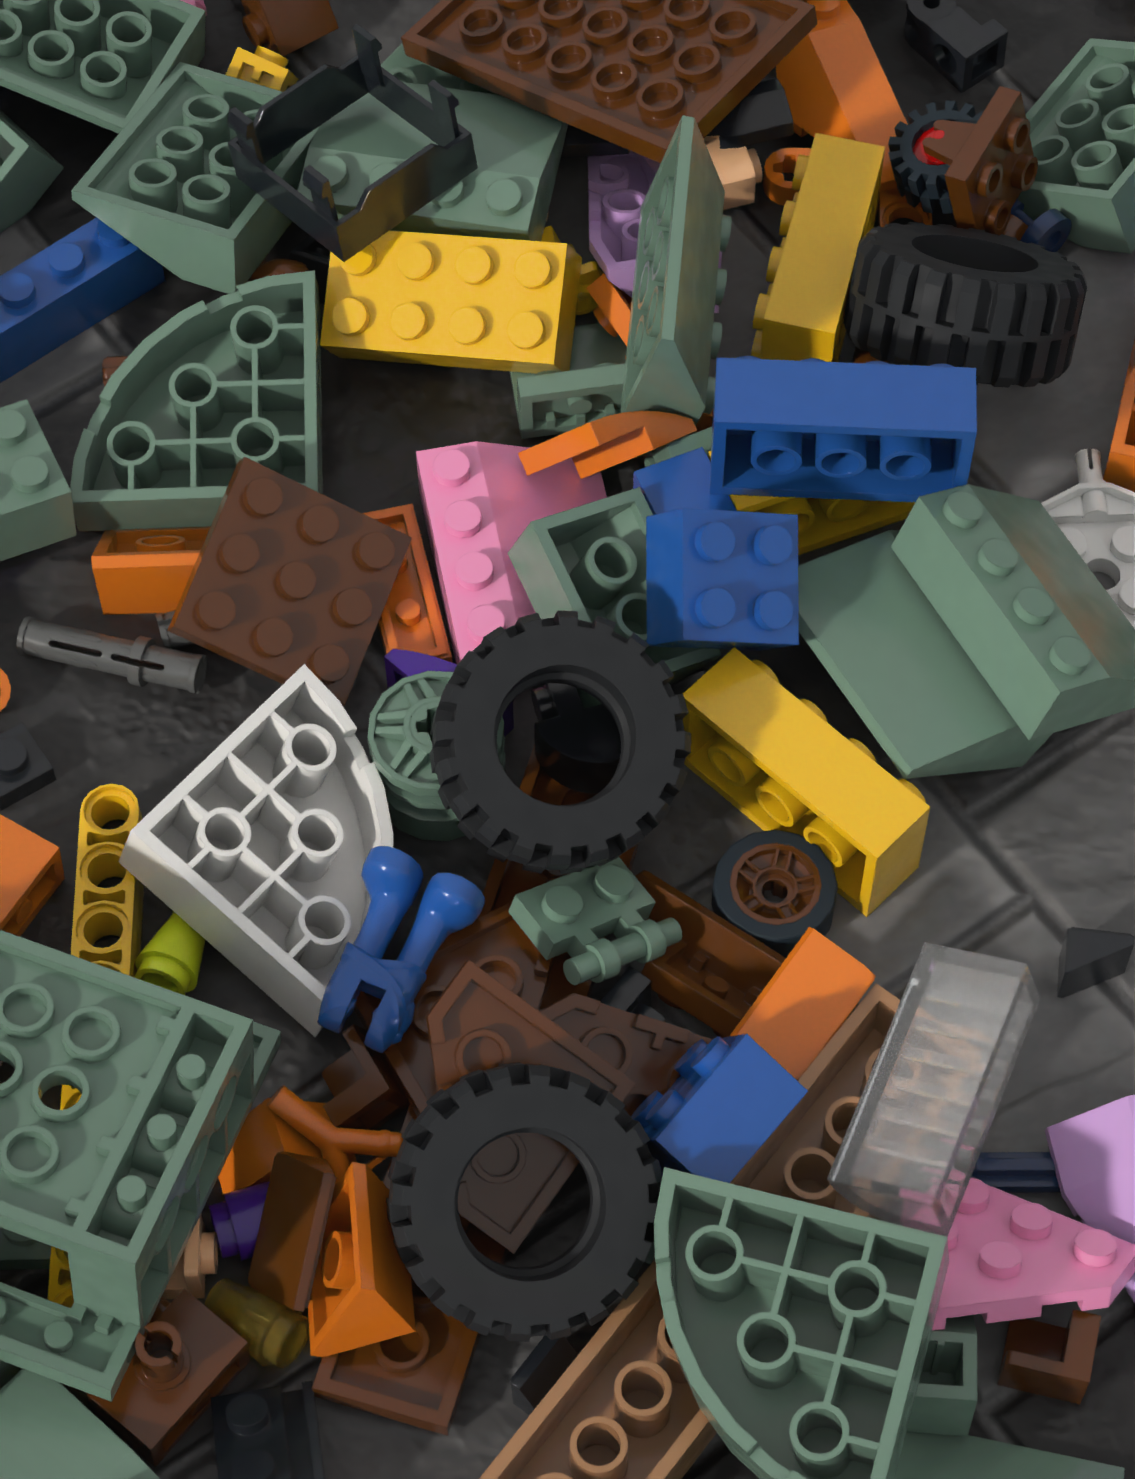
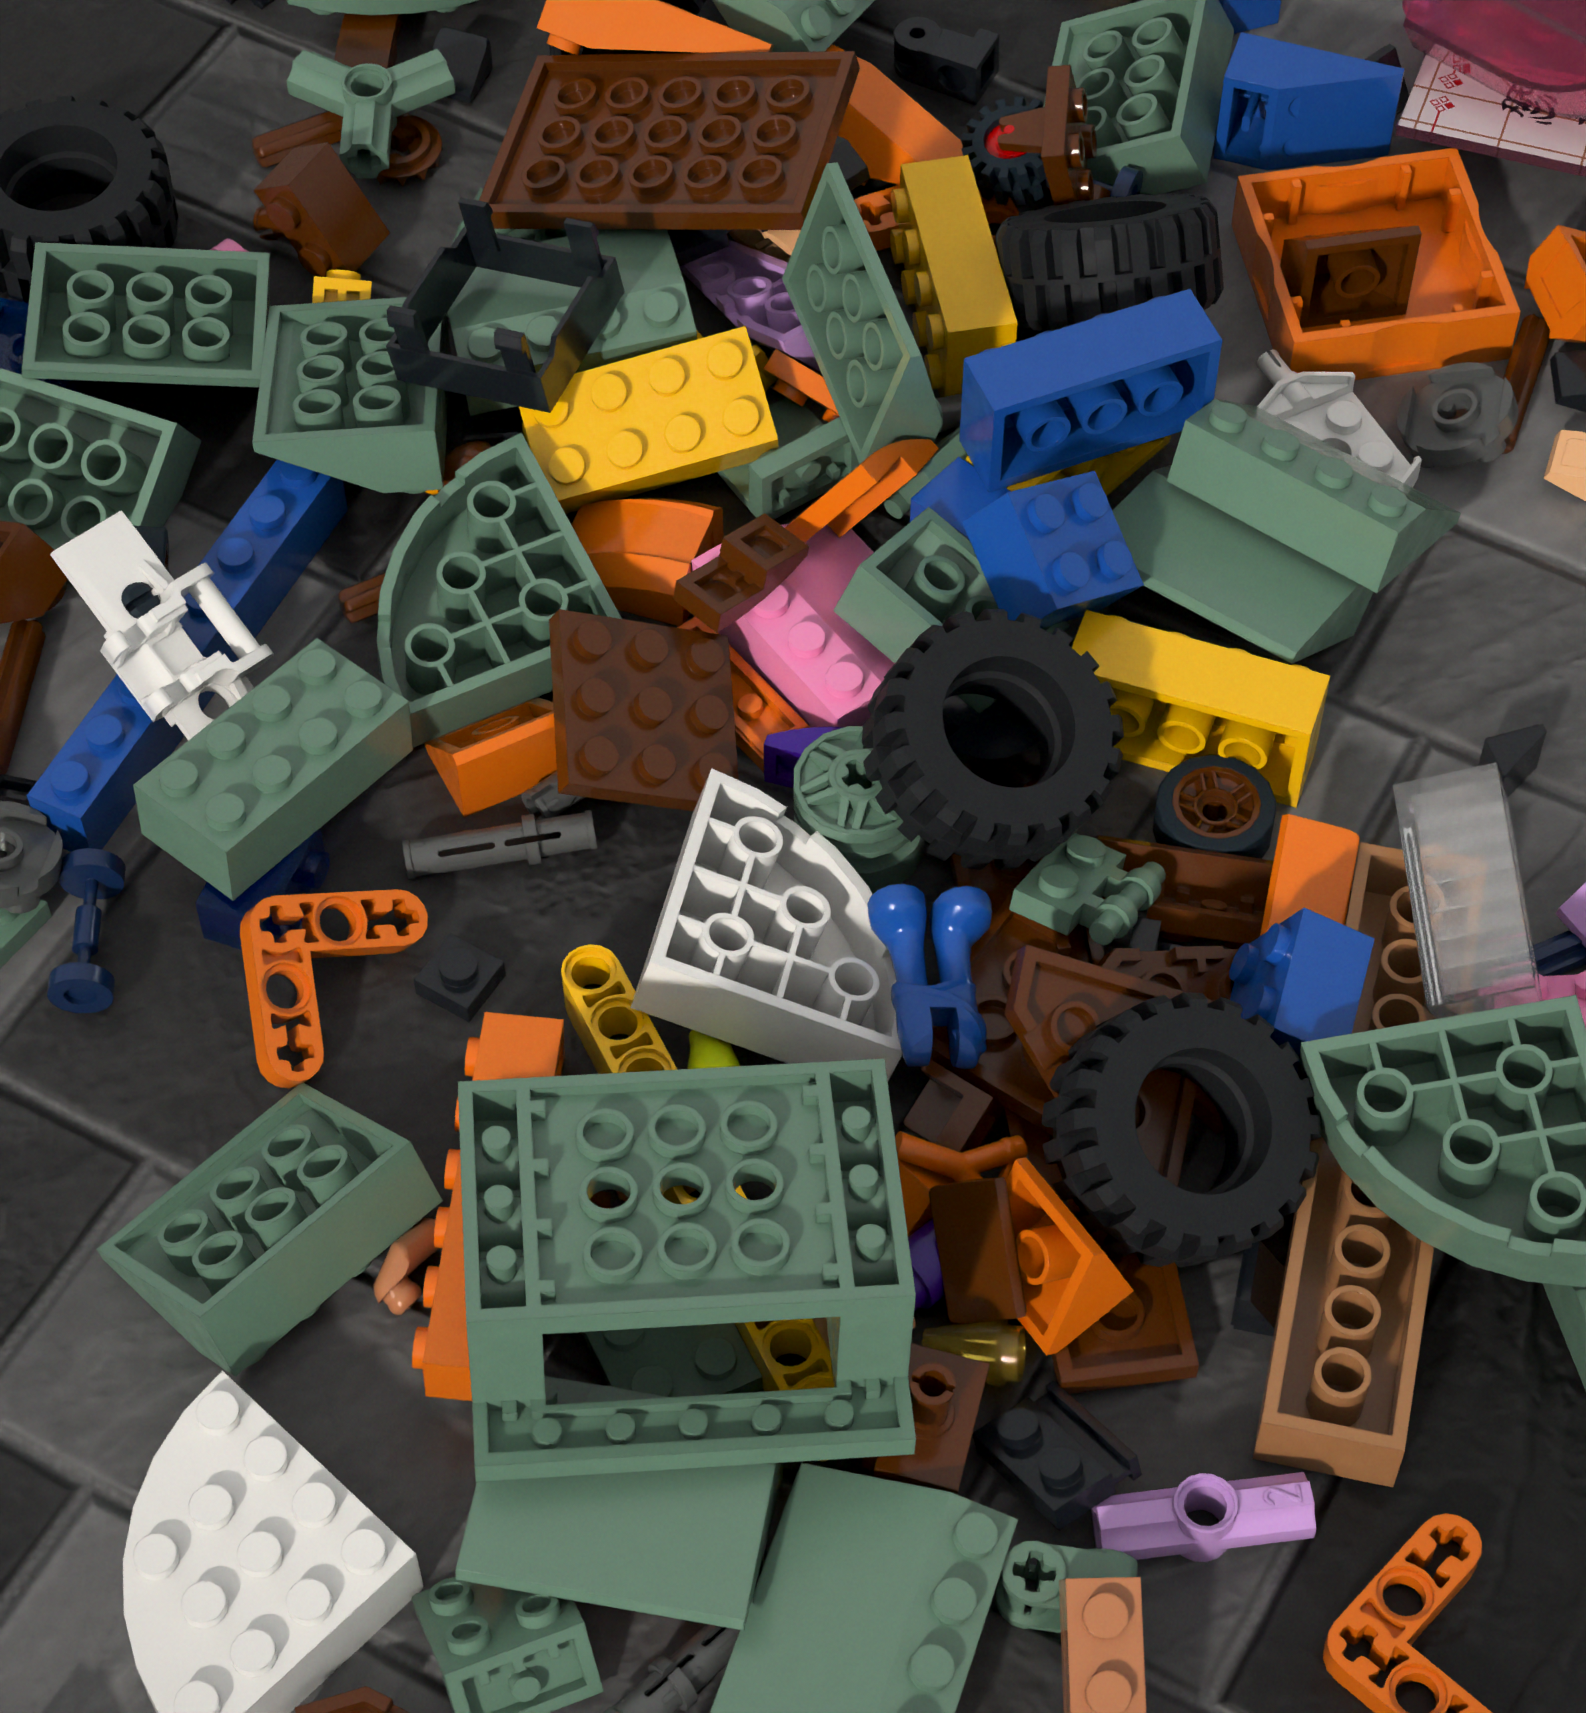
camera: 25 degrees left, 5 degrees down
(384, 415) = (645, 548): none -> orange slope
(453, 482) = (744, 573): none -> reddish brown slope

